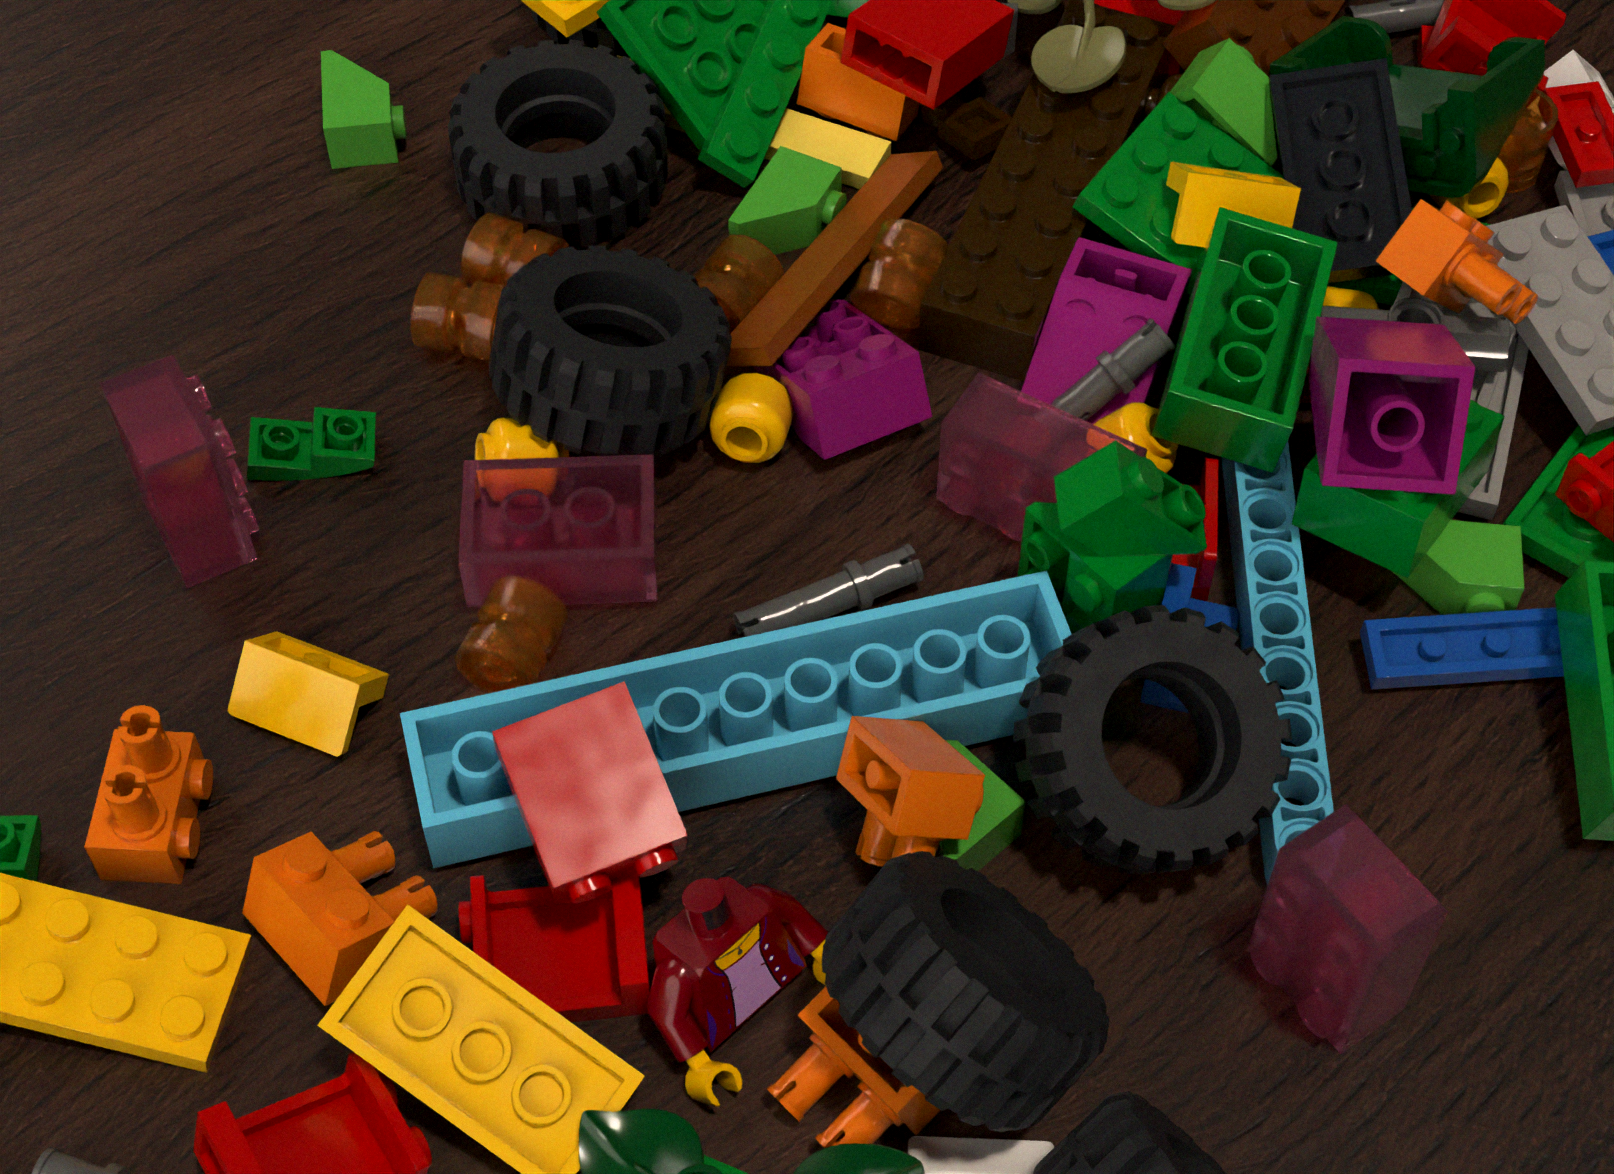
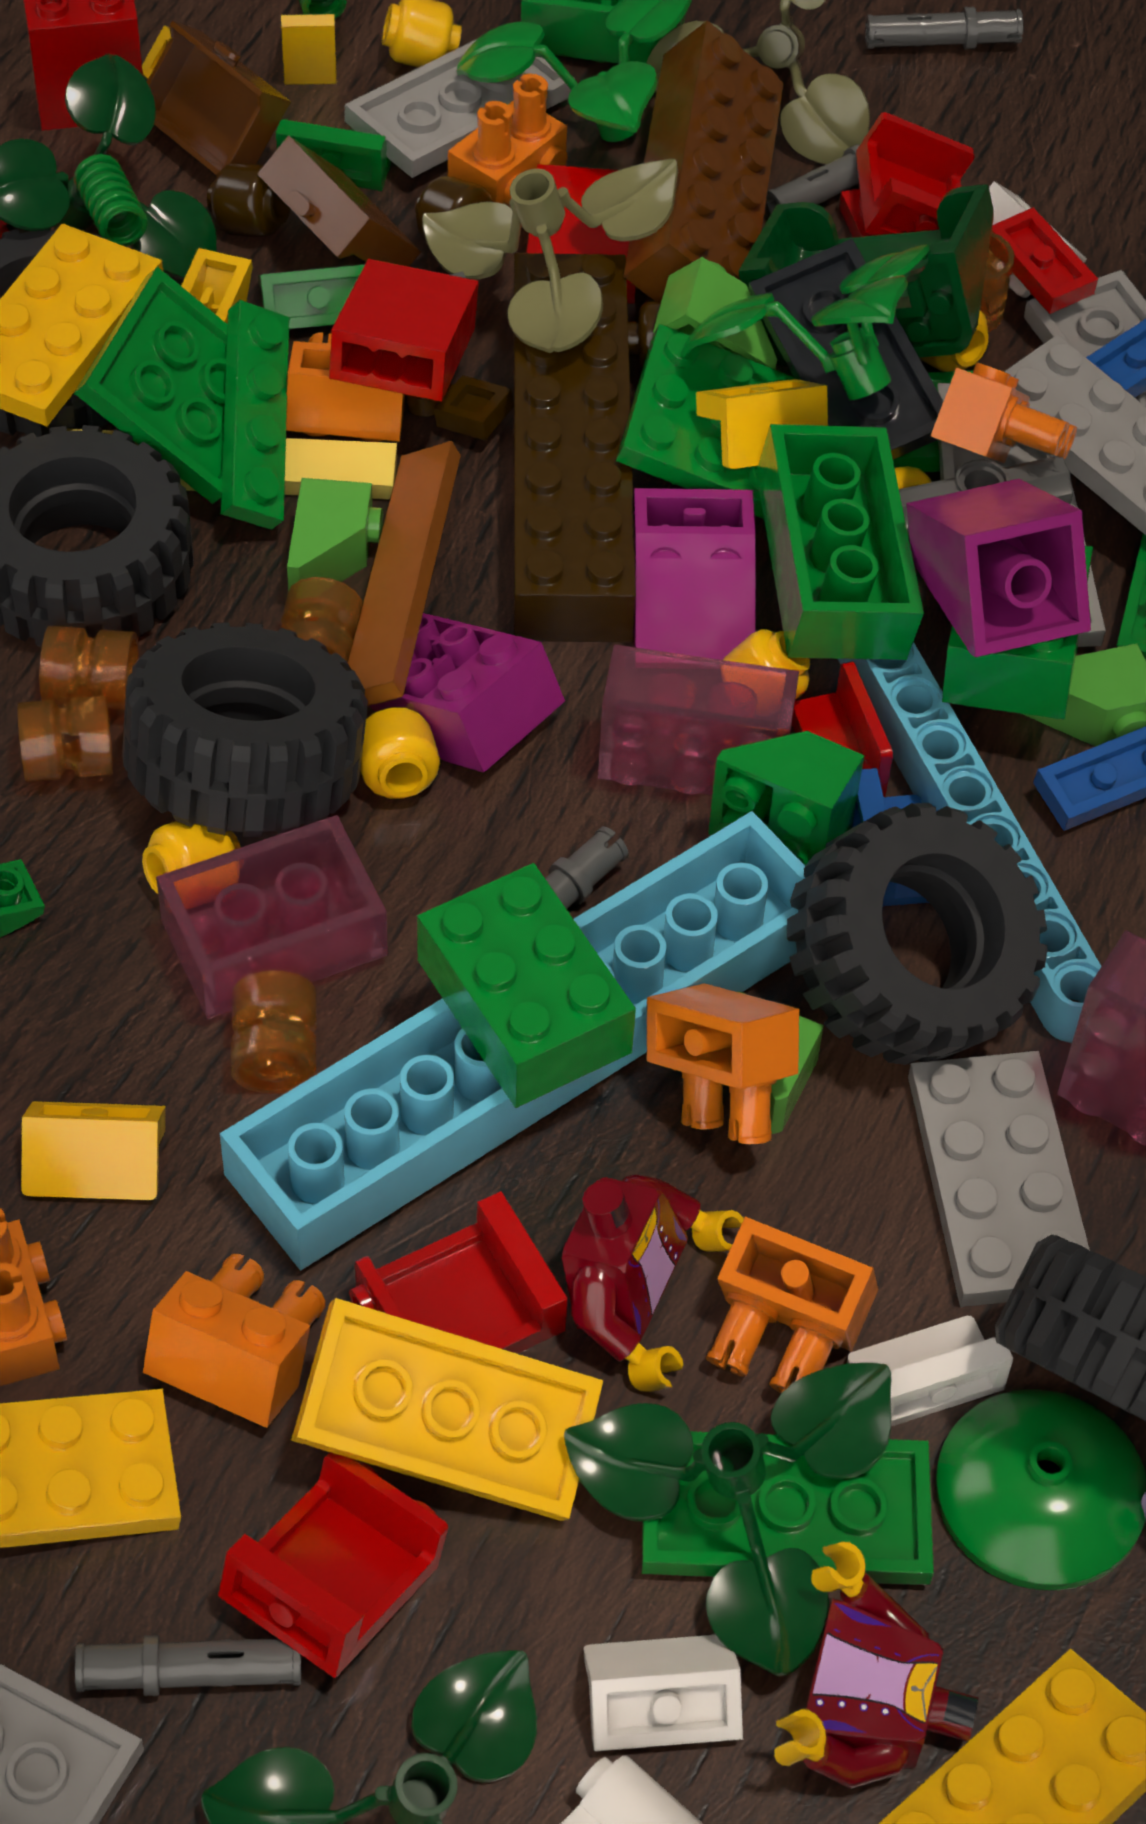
camera: 25 degrees left, 0 degrees up
(591, 793) = (447, 1144): brick -> none
(737, 666) = (525, 984): none -> green brick
(899, 273) = (474, 571): clear orange wheel -> none
(964, 992) = (863, 1203): black tyre -> none
(1115, 372) = (725, 605): dark grey pin -> none
(1128, 506) = (816, 727): green slope -> none
(1163, 973) = (993, 1167): none -> light grey plate
(1338, 167) = (855, 353): none -> green plant

